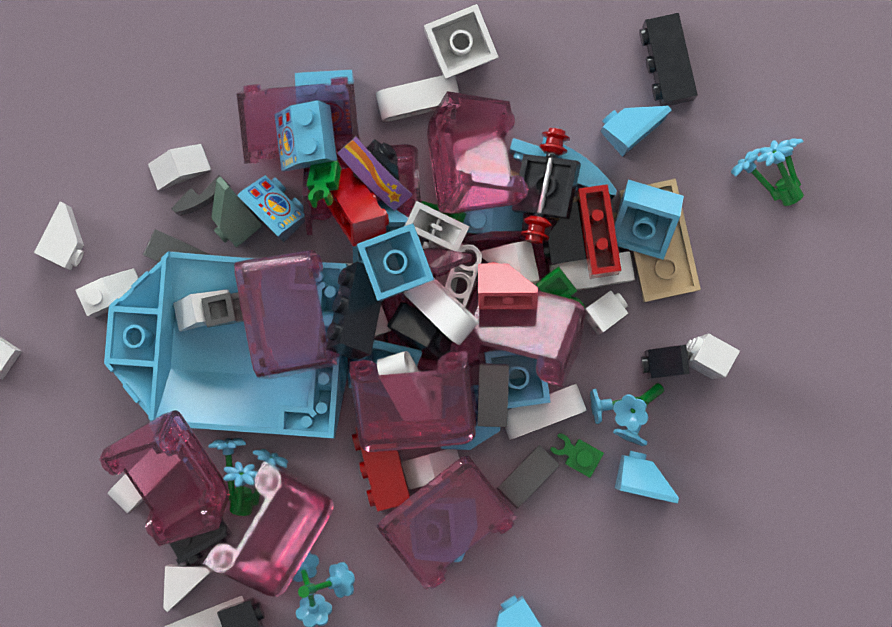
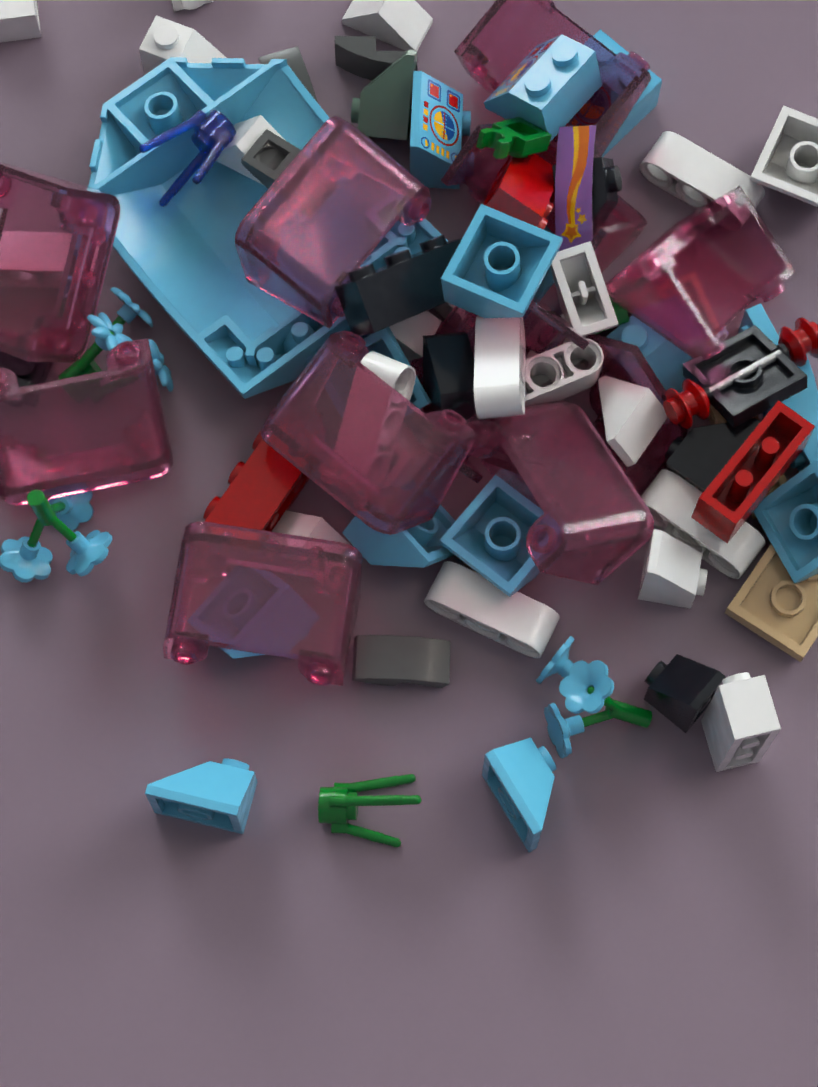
camera: 45 degrees right, 15 degrees down
(176, 327) = (211, 136): none -> clear blue plant
(493, 395) = (456, 518): dark grey slope -> none
(504, 288) = (586, 418): slope -> none
(559, 285) = (651, 484): green plate -> none
(574, 570) = (341, 804): none -> green plant
(581, 457) = (481, 701): green plate -> none

